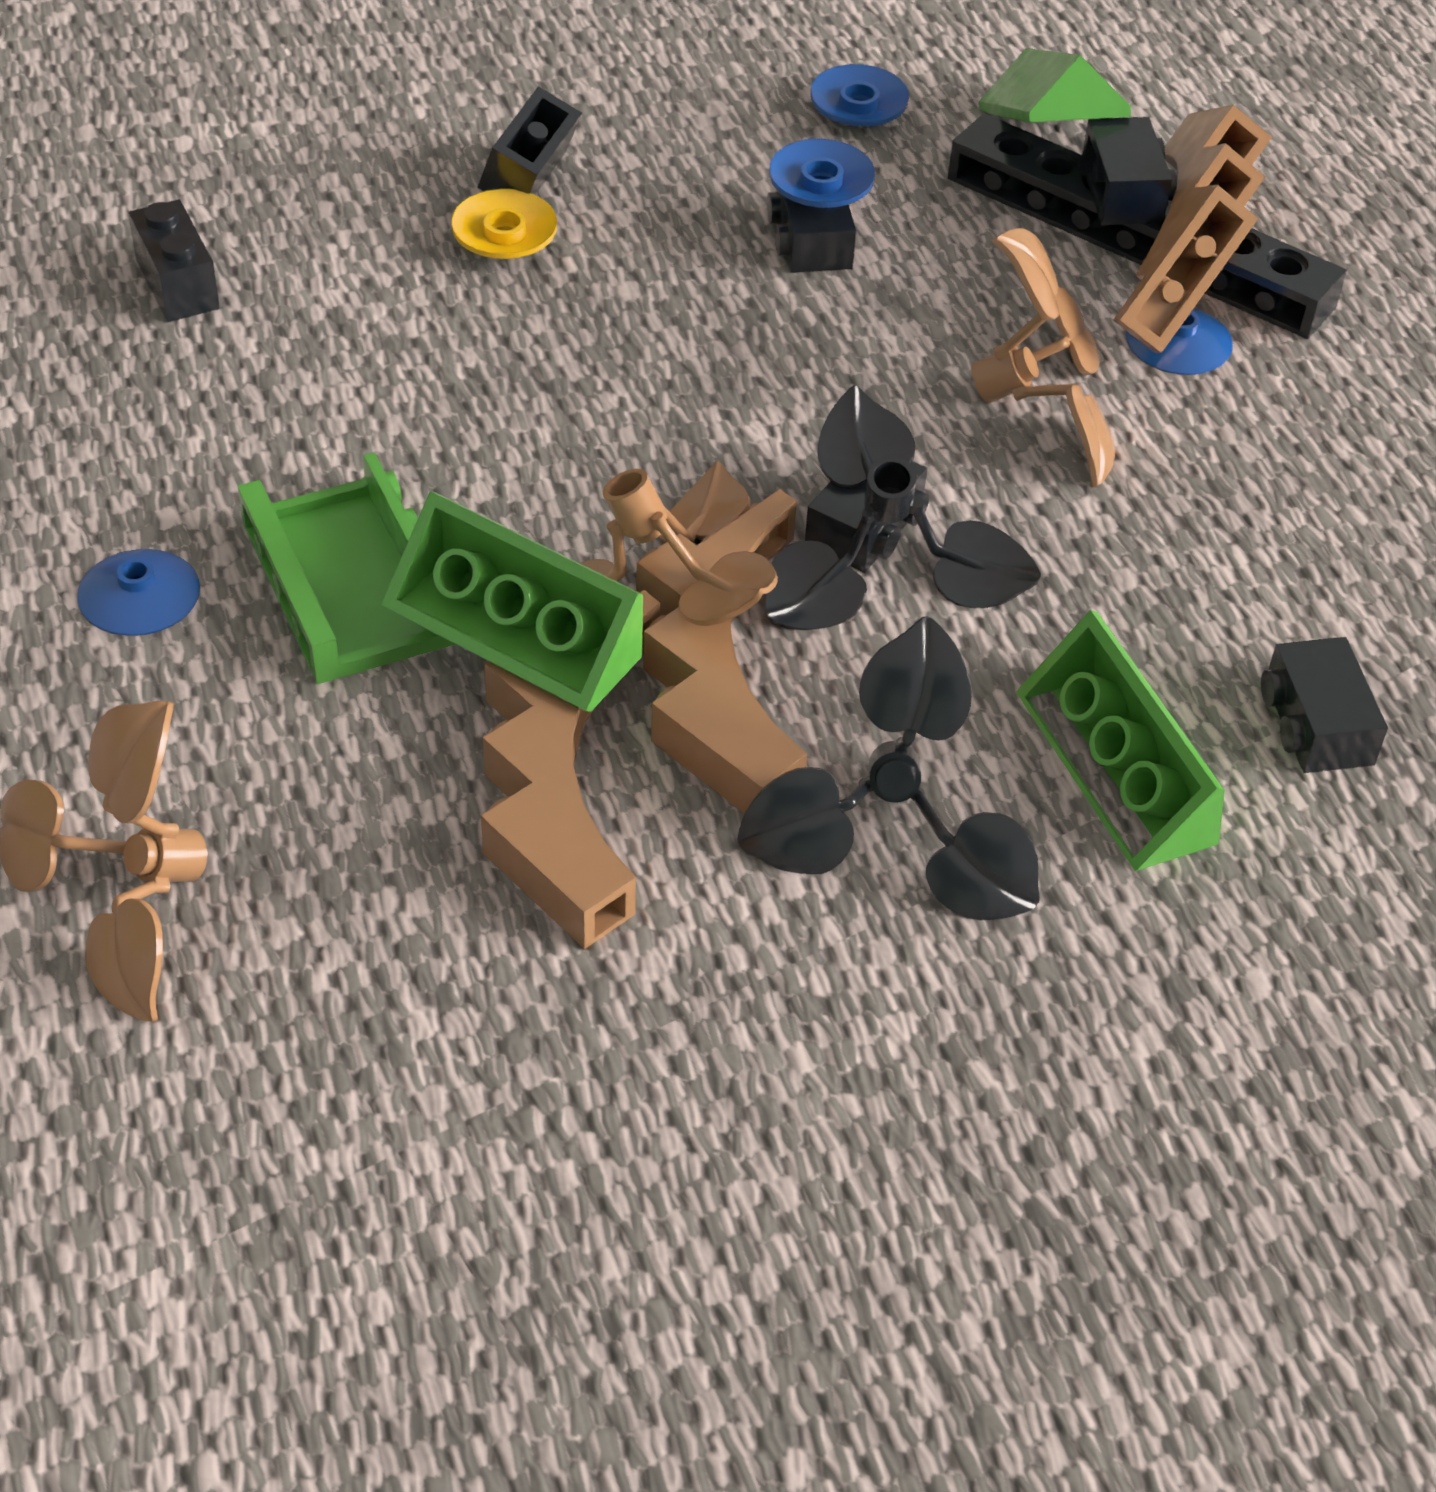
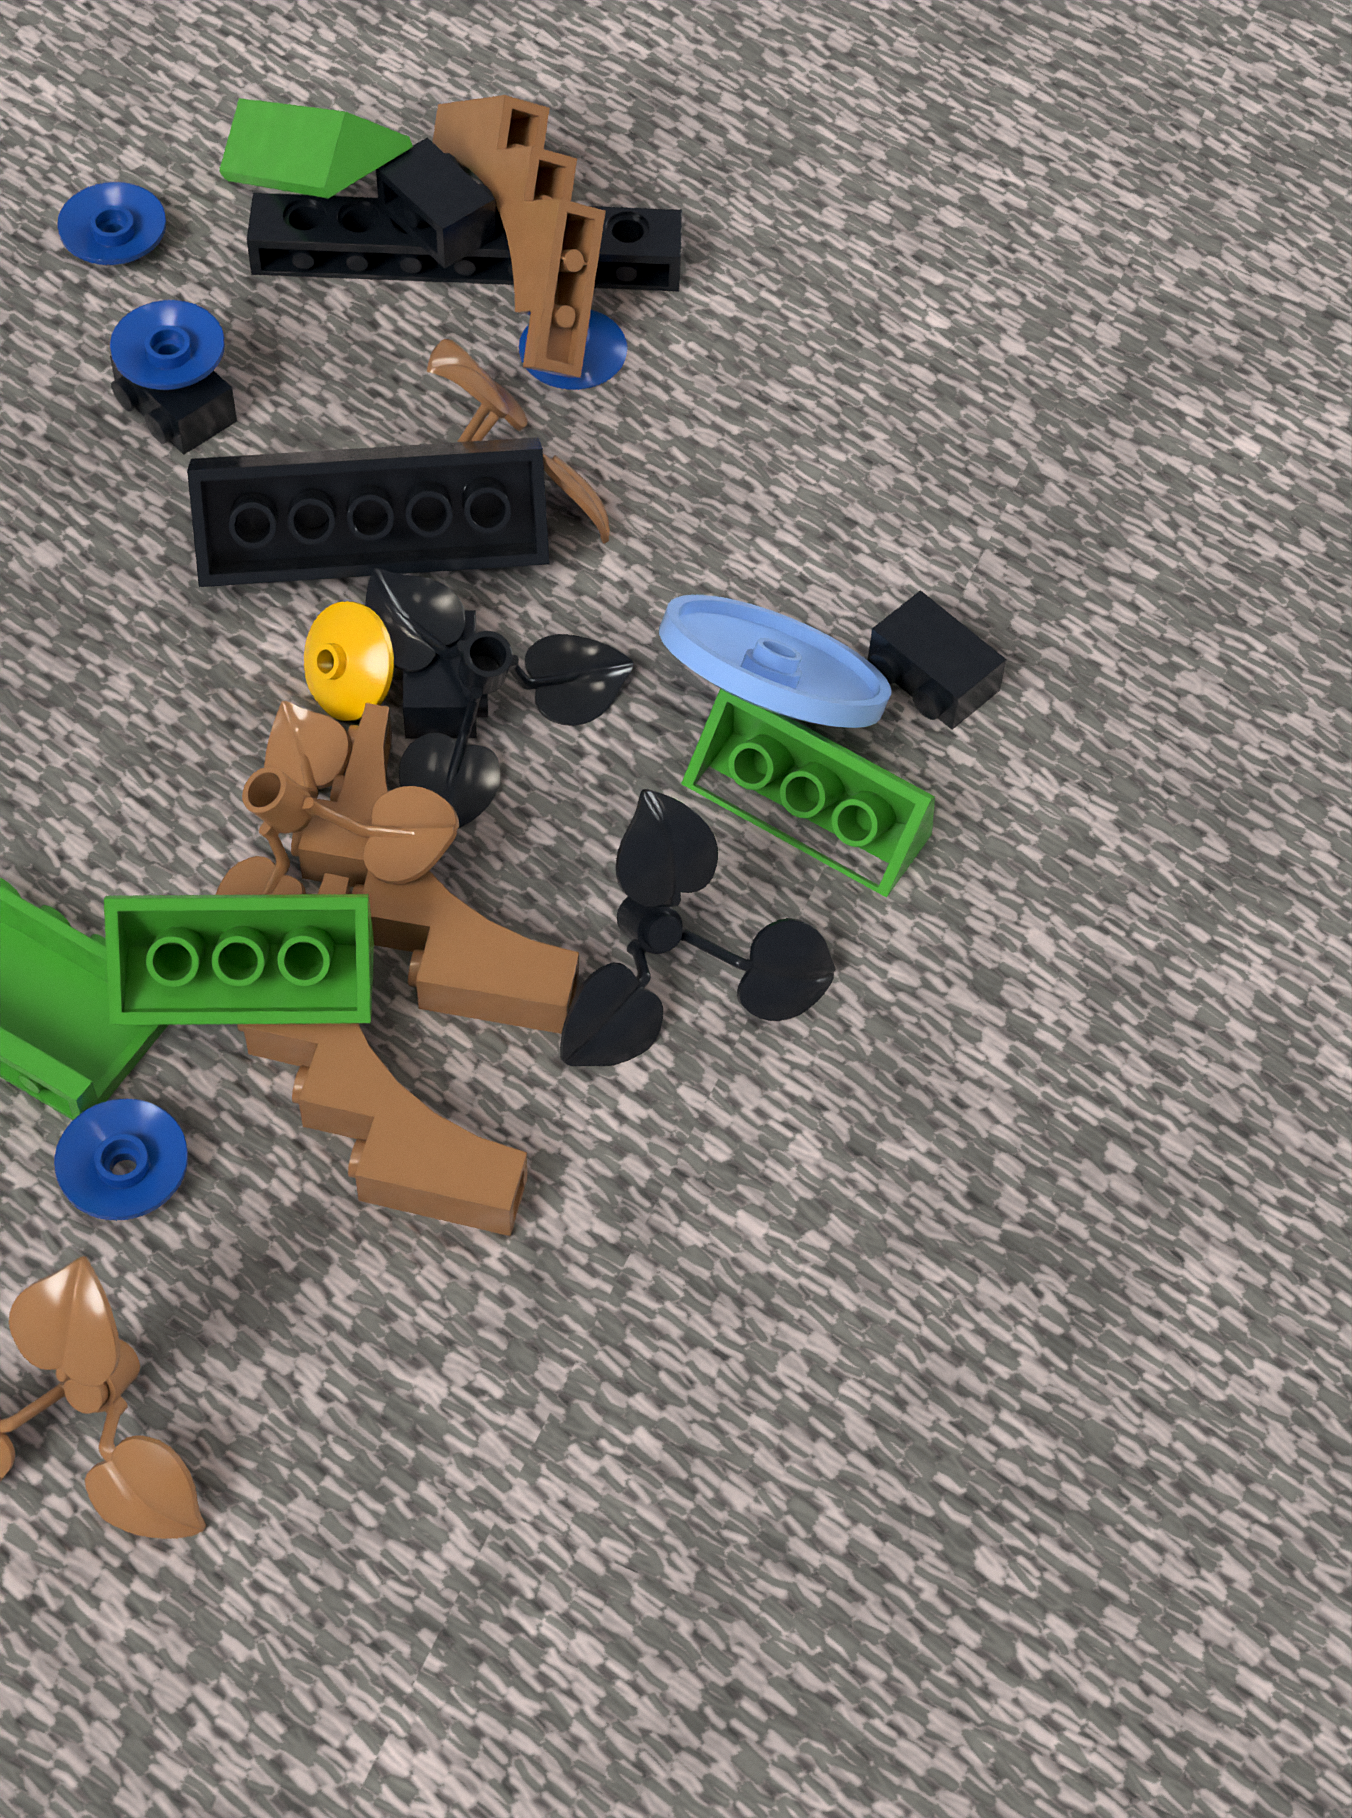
camera: 35 degrees left, 10 degrees up
(312, 695) = (117, 1133): none -> blue dish
(794, 453) = (348, 660): none -> yellow dish
(901, 355) = (368, 511): none -> black brick
(1157, 620) = (774, 661): none -> light blue dish

